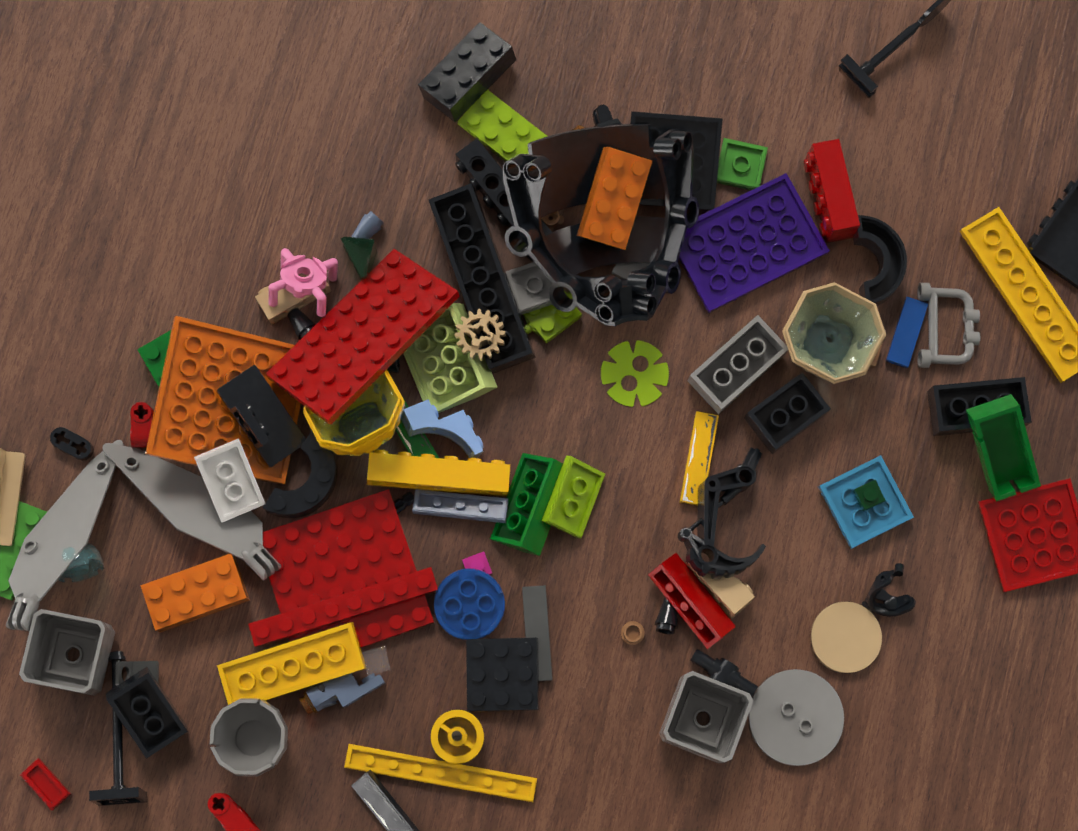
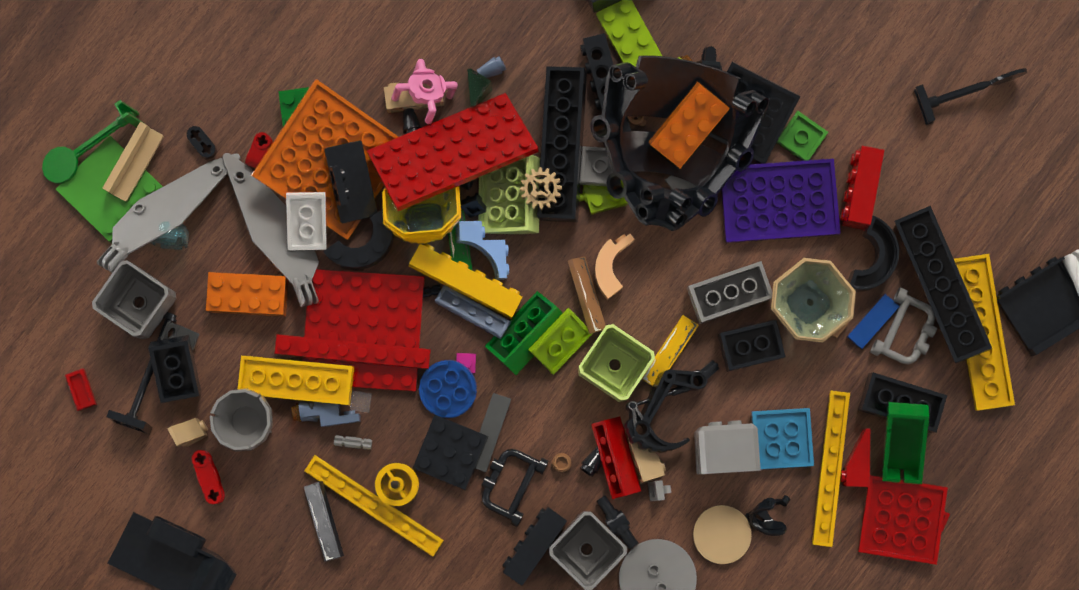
camera: 25 degrees right, 5 degrees up
(192, 778) = (188, 432): none -> tan slope
(386, 710) = (353, 442): none -> light grey axle
(411, 387) = (473, 205): none -> black tile
(562, 669) = (489, 483): none -> black bar
(580, 433) = (587, 294): none -> medium nougat tile
(588, 400) = (604, 275): none -> light nougat arch
(616, 372) = (646, 250): lime piece -> none
(643, 739) = (534, 546): none -> black brick
(662, 479) = (633, 360): none -> yellowish green plate
(753, 618) = (657, 490): none -> light grey tile
(811, 536) = (727, 448): none -> light grey plate
(869, 495) = (786, 435): dark green plate -> none
(933, 513) = (831, 468): none -> yellow plate
(961, 497) = (857, 467): none -> red slope
(966, 259) = (943, 285): none -> black brick

